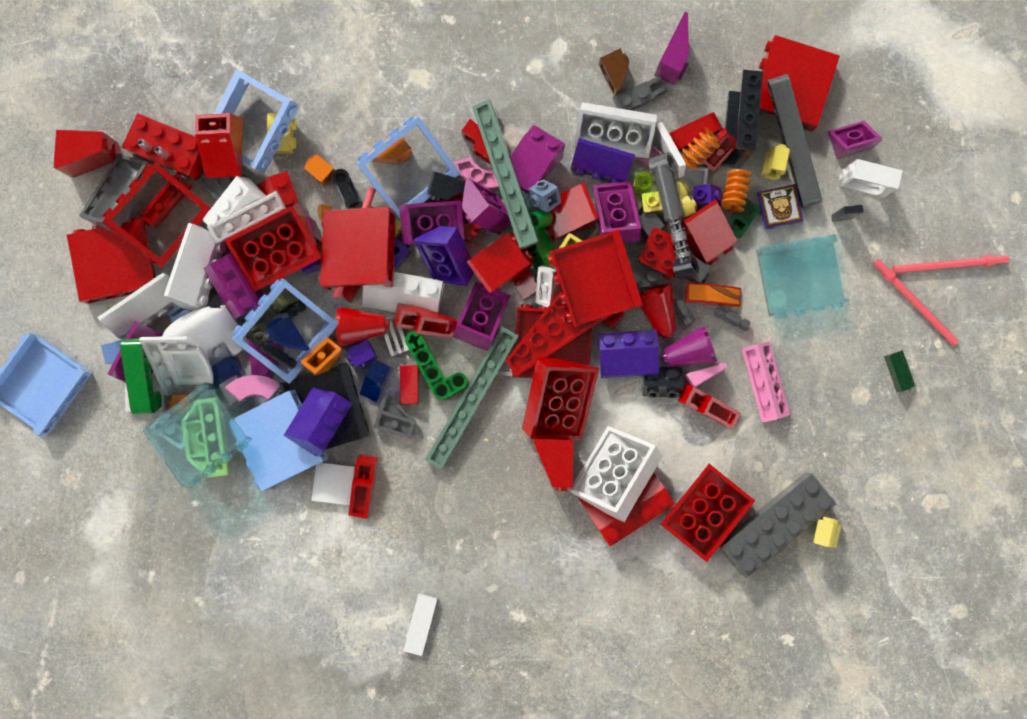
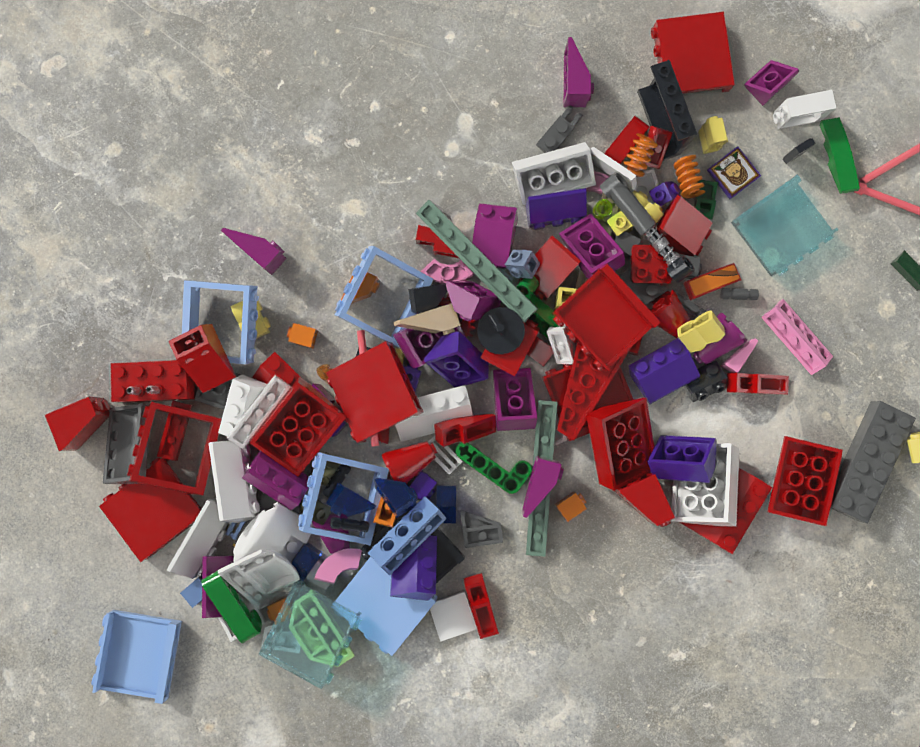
camera: 25 degrees left, 0 degrees up
(320, 79) = (266, 254): none -> magenta slope
(324, 389) = (407, 536): none -> medium blue brick
(333, 349) = (396, 495): none -> clear blue slope
(346, 190) = (336, 342): black piece -> none
(409, 384) = (477, 493): red slope -> none
(420, 624) = (593, 706): white tile -> none
(438, 207) = (432, 321): none -> tan slope
(471, 395) = (542, 480): none -> magenta slope
(487, 435) = (571, 506): none -> orange brick
(496, 246) = (501, 330): none -> black shield
(607, 440) = (684, 458): none -> dark purple slope
(614, 69) = (526, 118): reddish brown slope -> none
(677, 332) = (701, 331): none -> light yellow brick
(794, 138) = (719, 105): dark grey beam -> none
(884, 235) = (840, 155): none -> green slope

